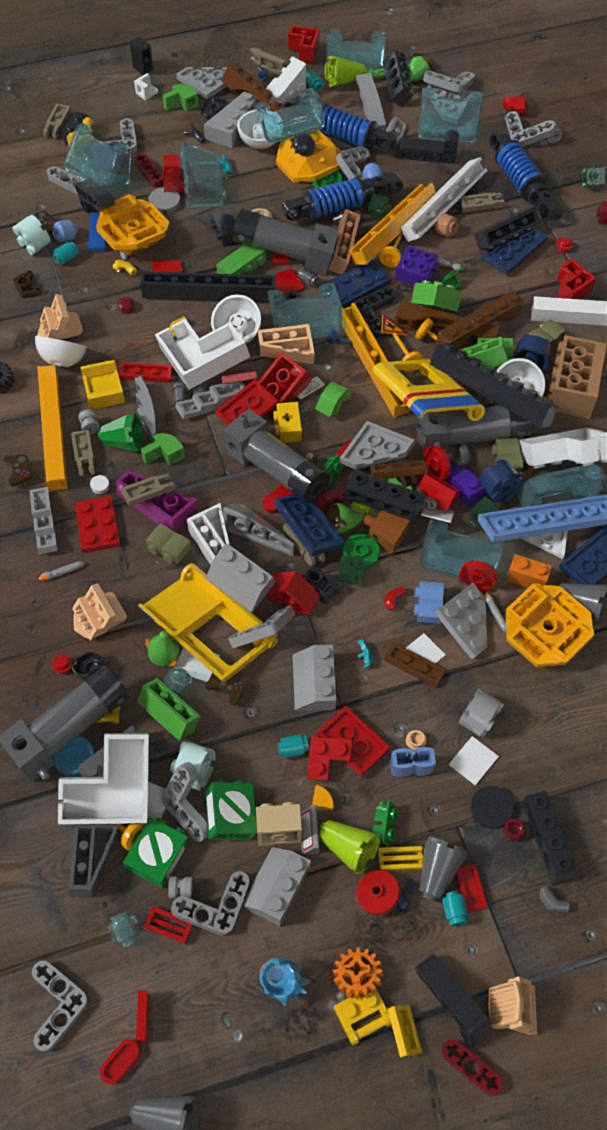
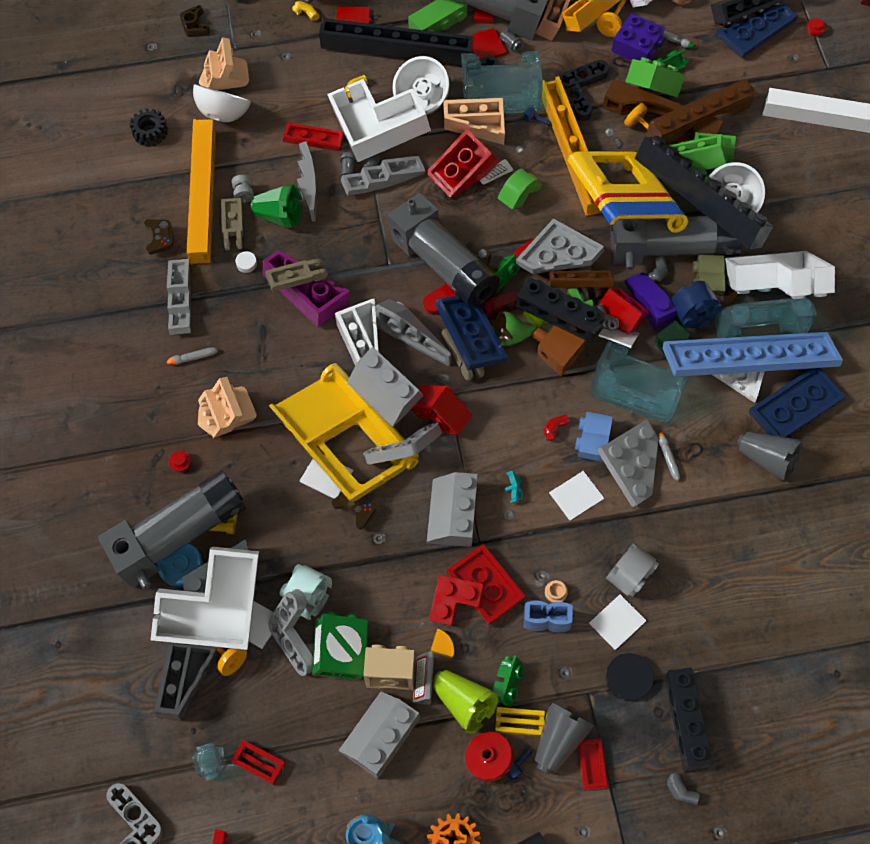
camera: 10 degrees right, 5 degrees up
(87, 664) = (206, 465): black hair -> none
(97, 524) = (237, 307): red plate -> none
(102, 384) = (263, 147): yellow panel -> none
(125, 305) = (301, 55): dark red tile -> none
(156, 851) = (255, 681): green brick -> none
(163, 650) = (291, 458): bright green hat -> none
(165, 446) = (322, 225): bright green brick -> none
(168, 544) = (312, 338): olive brick -> none
(168, 709) = (287, 525): bright green brick -> none
(178, 681) = (300, 496): clear light blue head -> none
(180, 887) = (275, 723): light grey wheel -> none
(214, 914) = (307, 757): light grey beam -> none
(233, 377) = (419, 151): red tile -> none
(251, 397) = (426, 179): red plate -> none
(288, 422) = (465, 211): yellow brick -> none
(293, 746) = (418, 582): teal brick -> none
(324, 585) = (478, 405): black piece -> none
(352, 570) = (512, 390): clear green brick -> none
(359, 282) = (569, 52): dark blue plate -> none
(362, 547) = (526, 369): green tile -> none
(391, 328) = (597, 109): light orange piece -> none
(415, 665) = (568, 506): reddish brown tile -> none
(437, 461) = (626, 275): red plate -> none
(455, 908) = (571, 785): teal brick -> none
(480, 574) = (655, 411): red plate -> none
(513, 830) = (650, 705): dark red tile -> none
(527, 571) = (712, 415): orange brick -> none
(534, 349) = (759, 154): dark blue brick -> none
(550, 607) = (726, 457): light orange piece -> none
(551, 331) = (776, 137): olive brick -> none
(575, 281) = (821, 73): red brick -> none
(577, 376) = (803, 189): medium nougat brick -> none

